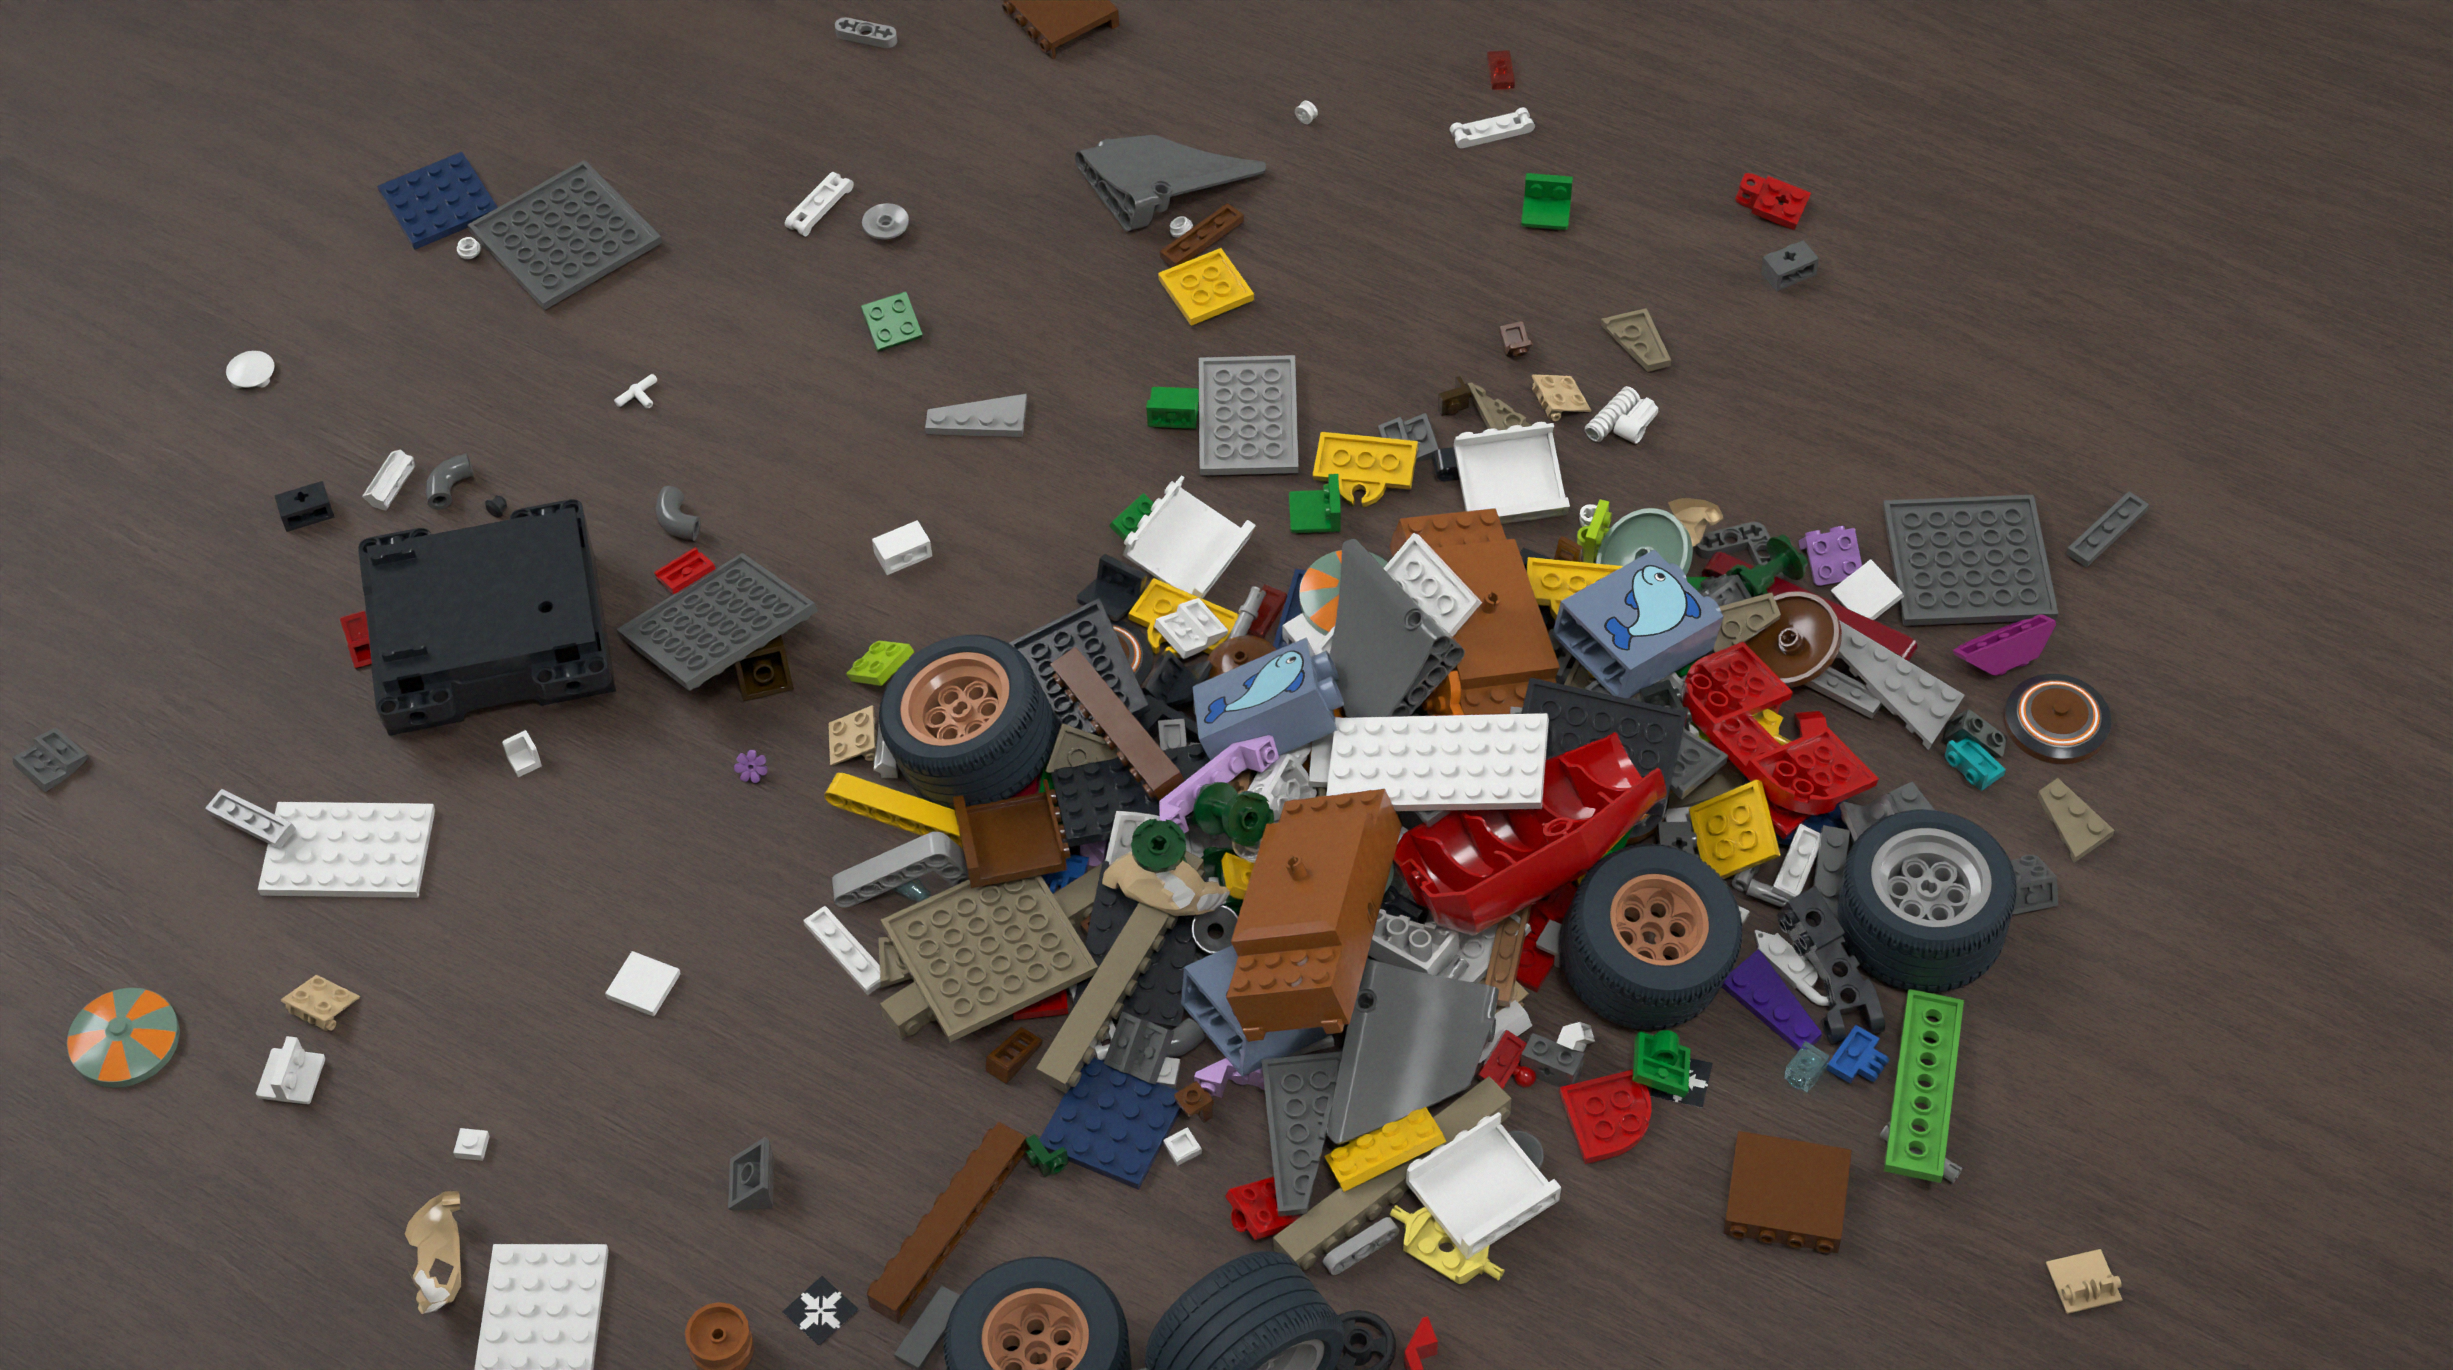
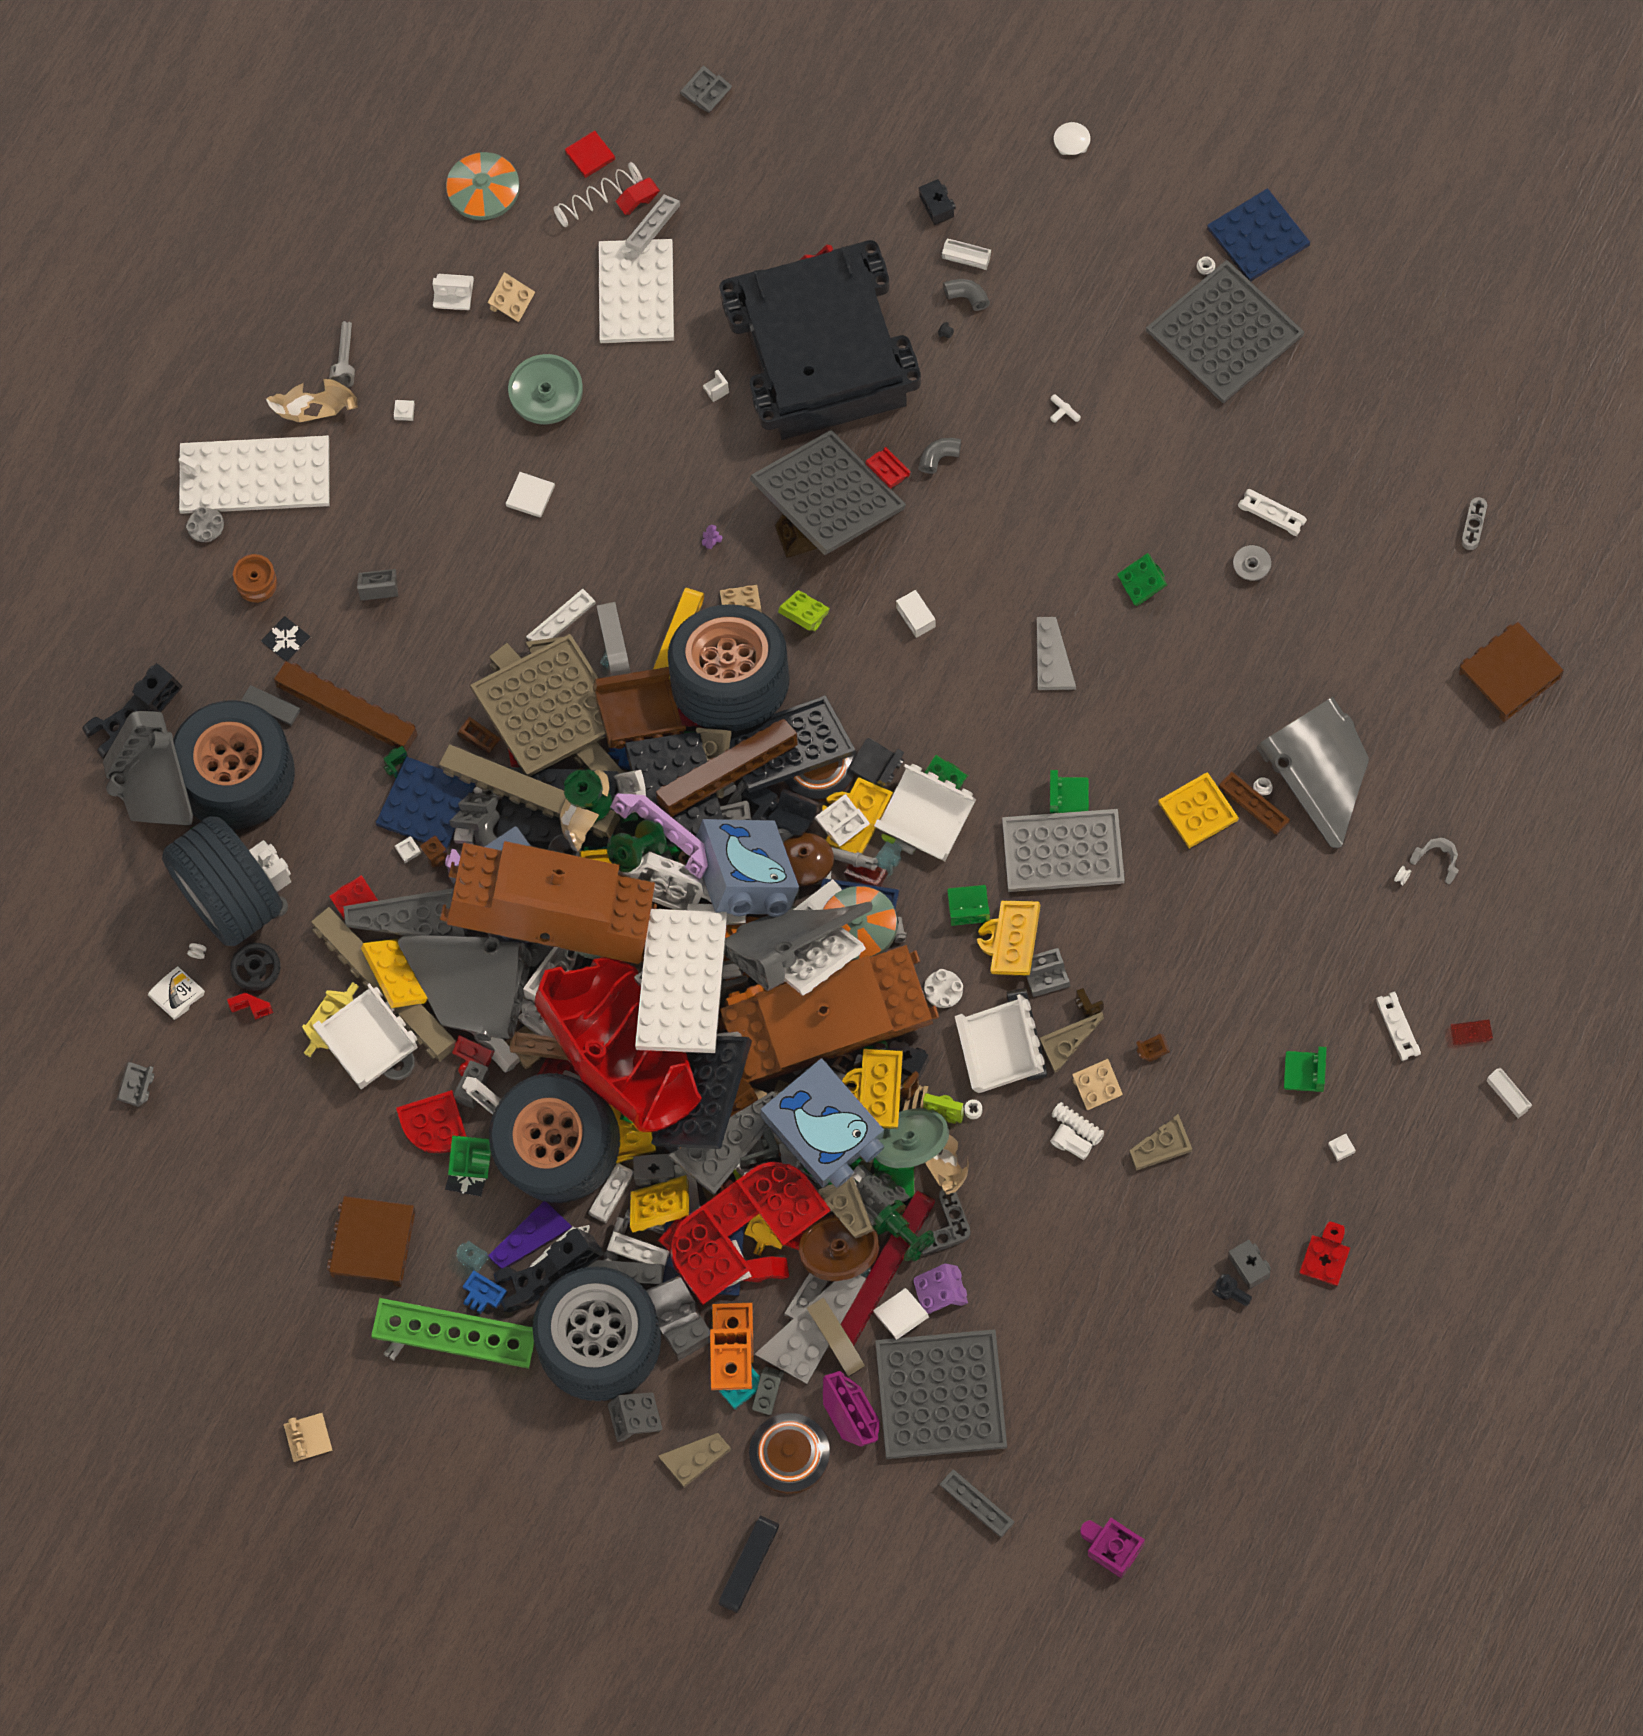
camera: 90 degrees right, 15 degrees up
(111, 900) = (590, 154): none -> red tile
(165, 849) = (558, 211): none -> white piece
(198, 840) = (638, 193): none -> red slope
(389, 1220) = (342, 371): none -> light grey piece
(482, 953) = (545, 389): none -> sand green dish
(1223, 580) = (905, 847): none -> light grey piece
(1240, 584) = (889, 857): none -> clear light blue brick
(1271, 74) = (1446, 846): none -> light grey helmet
(1361, 1246) = (329, 965): light grey beam -> none
(1577, 41) = (1509, 1092): none -> white piece
(1640, 184) = (1341, 1147): none -> white plate
(1820, 284) = (1227, 1288): none -> black axle
(1903, 649) = (835, 1336): none -> dark tan slope
(1938, 740) = (732, 1346): none -> orange bracket
(2151, 397) = (1110, 1546): none -> magenta brick
(2213, 761) = (748, 1564): none -> black beam

